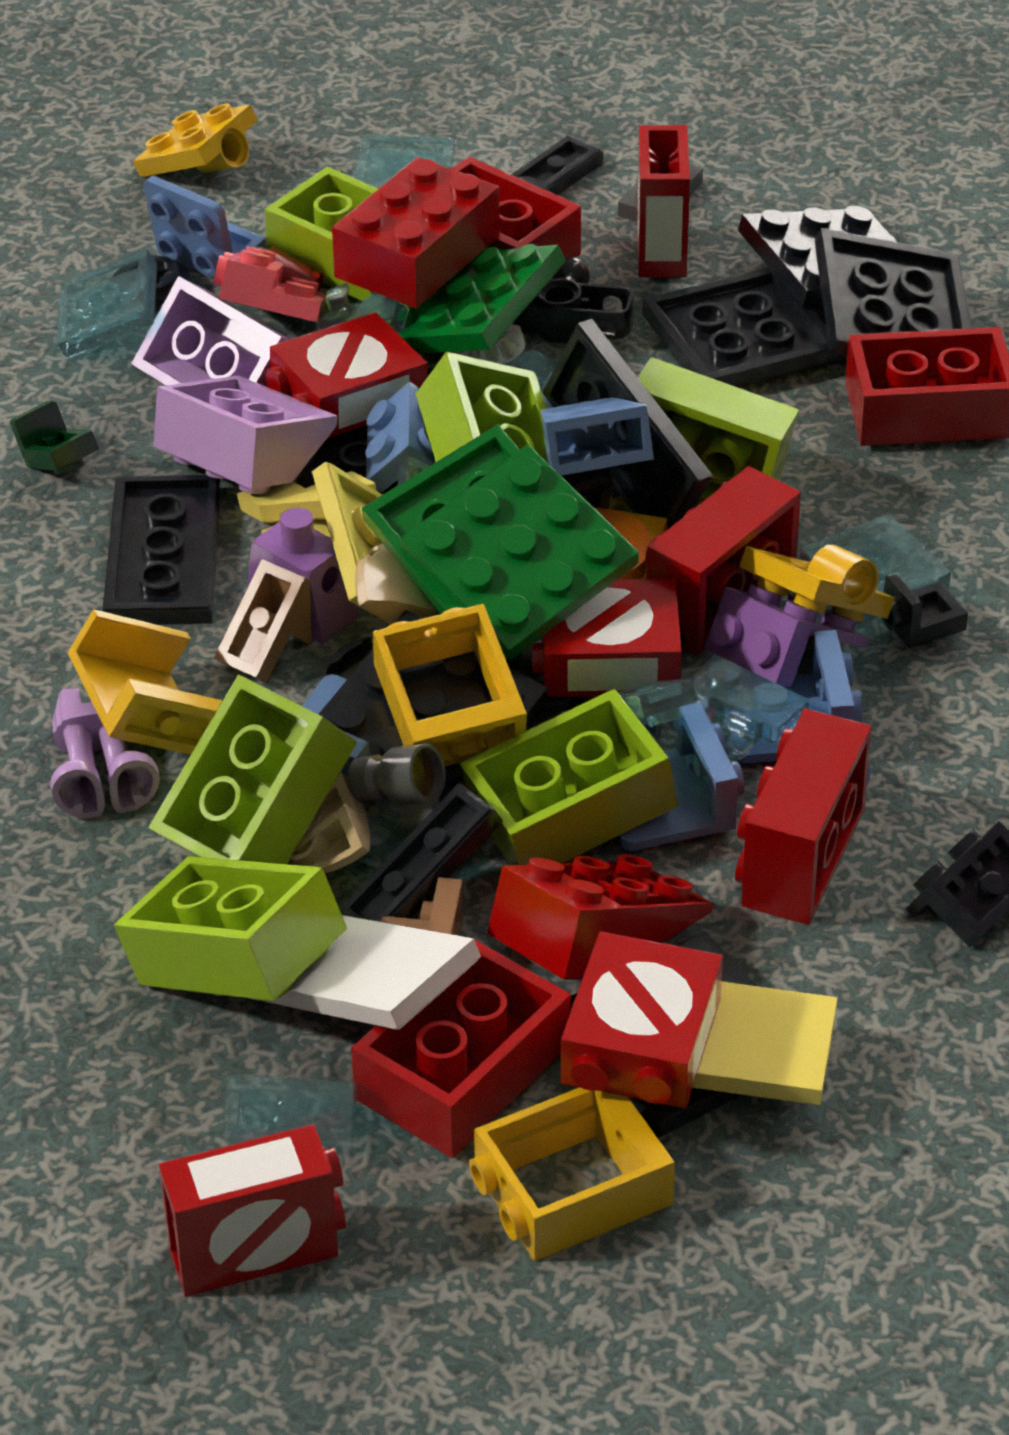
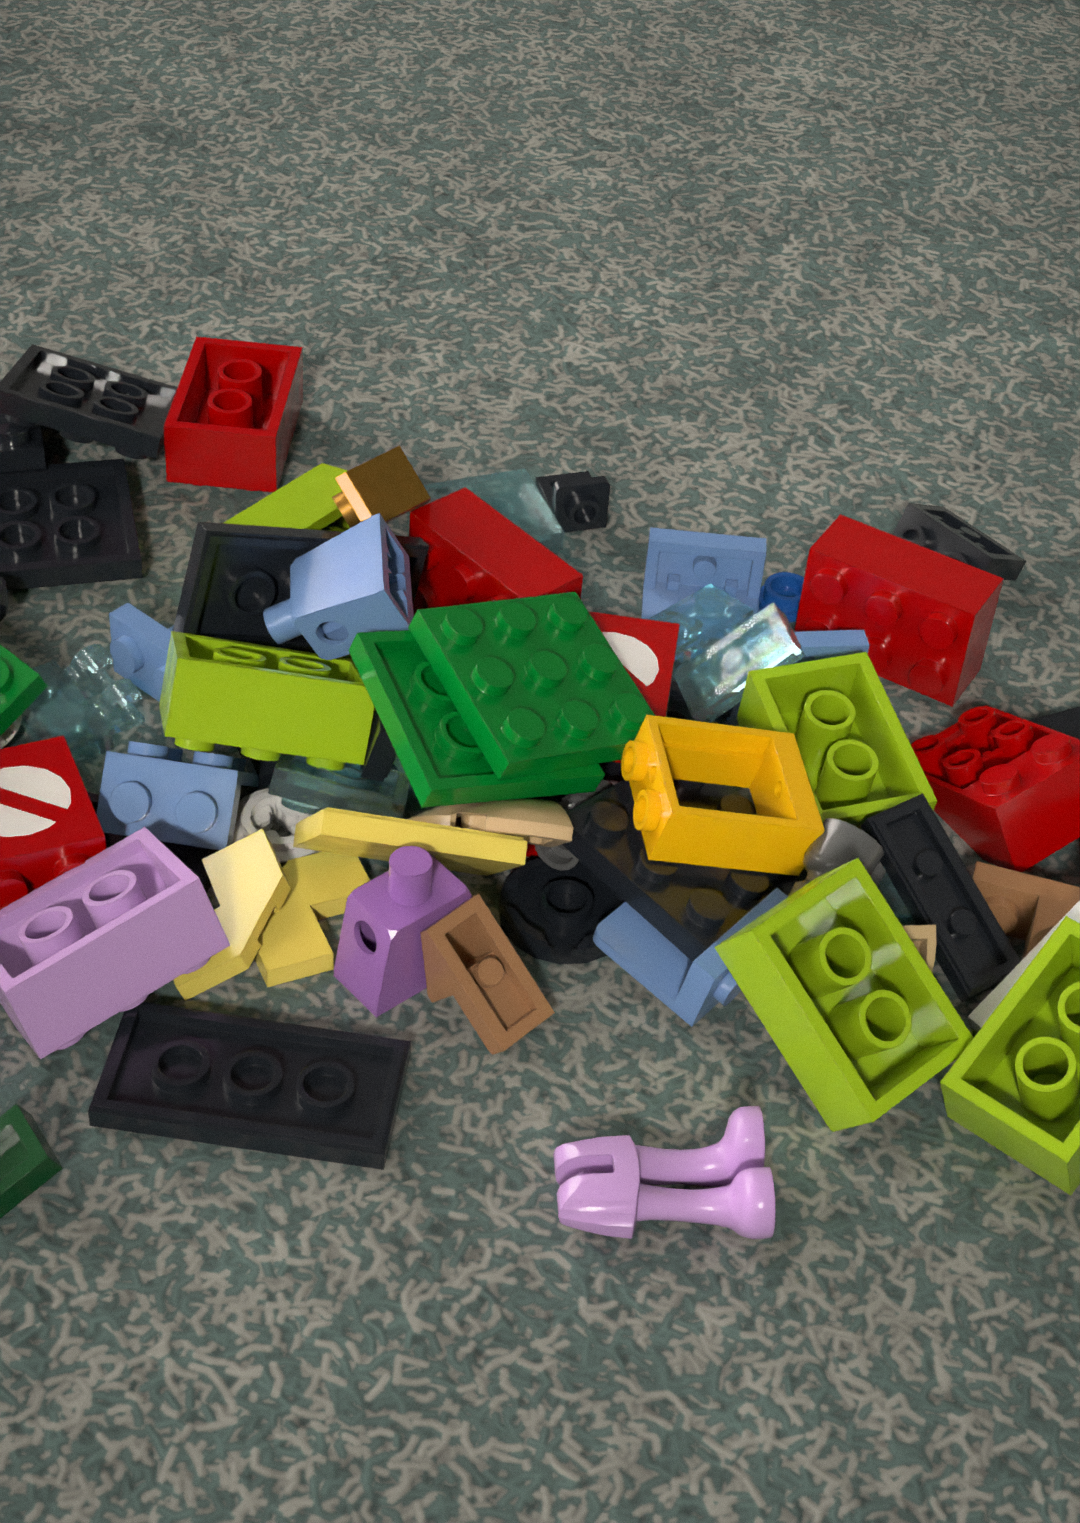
camera: 85 degrees left, 0 degrees up
(130, 683) = (658, 1111): yellow panel -> none
(743, 432) = (380, 486): none -> pearl gold slope
(770, 633) = (623, 574): medium lavender bracket -> none
(829, 579) = (583, 511): yellow plate -> none

